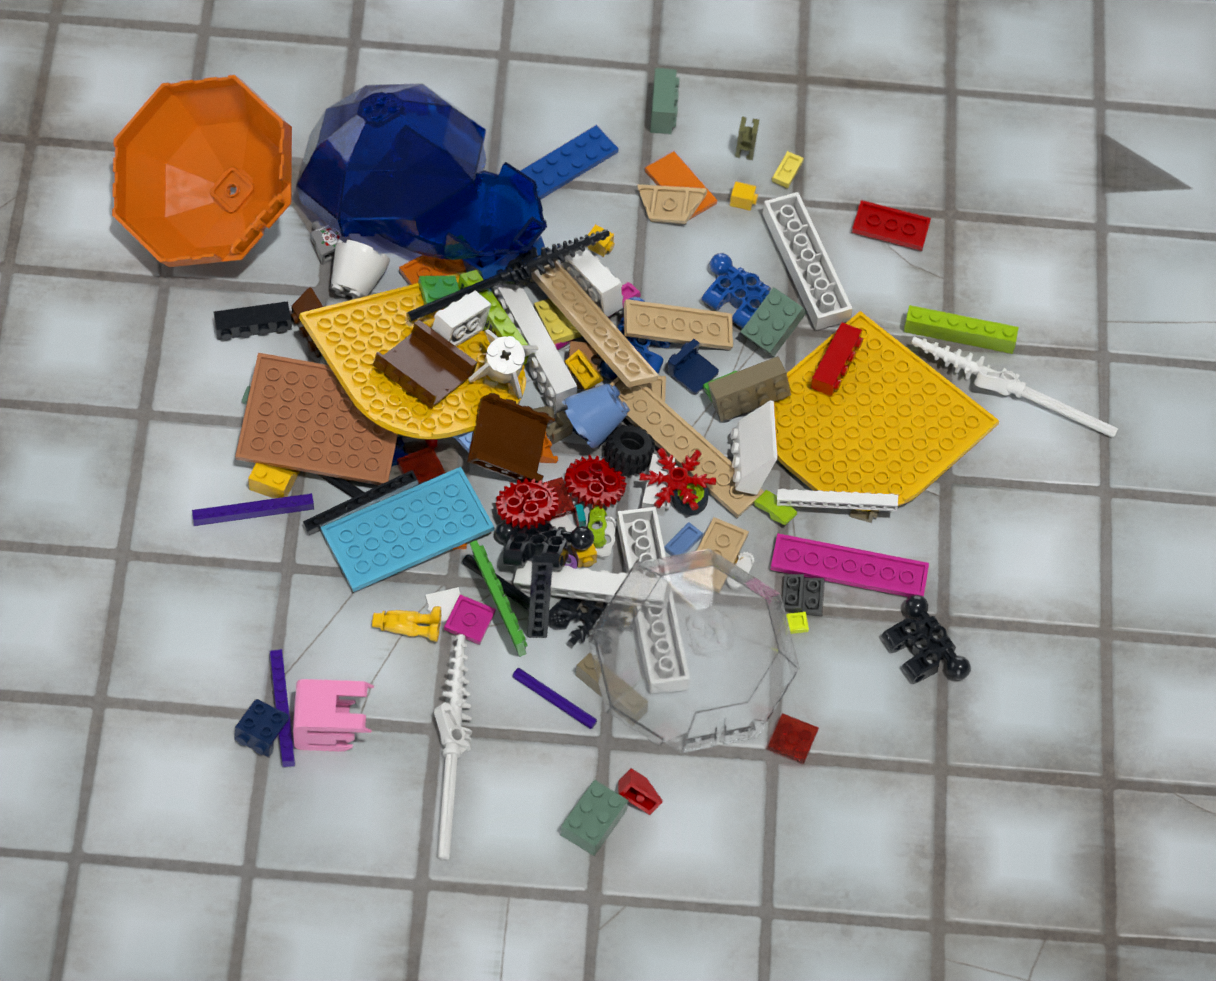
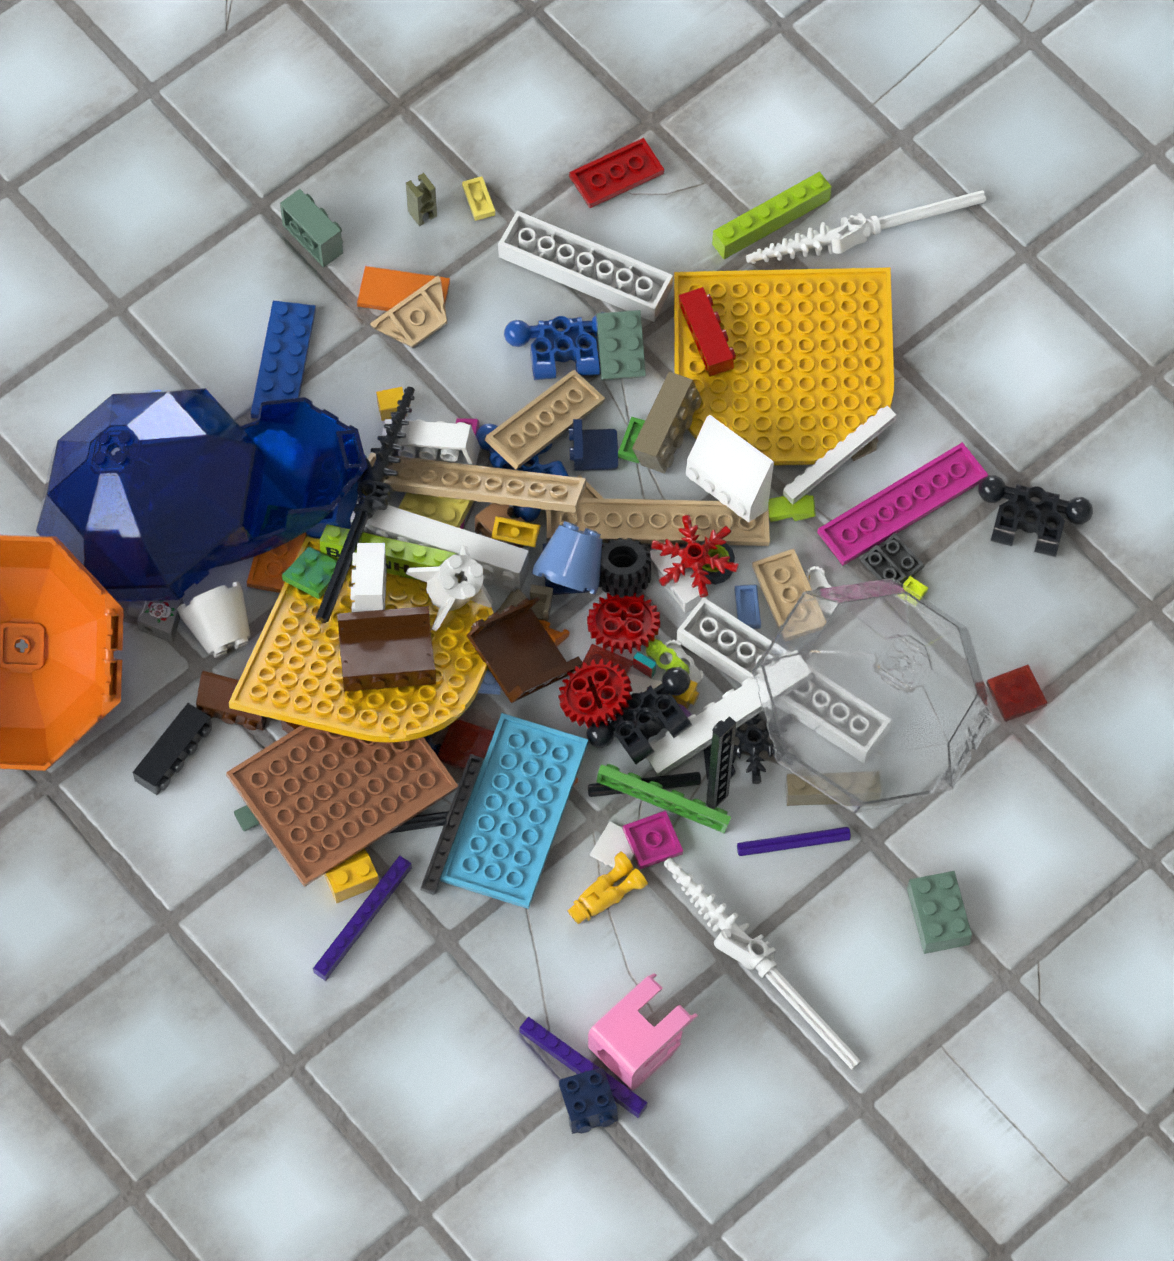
camera: 40 degrees left, 5 degrees up
(639, 791) = (950, 855): red slope -> none
(743, 196) = (468, 255): yellow brick -> none

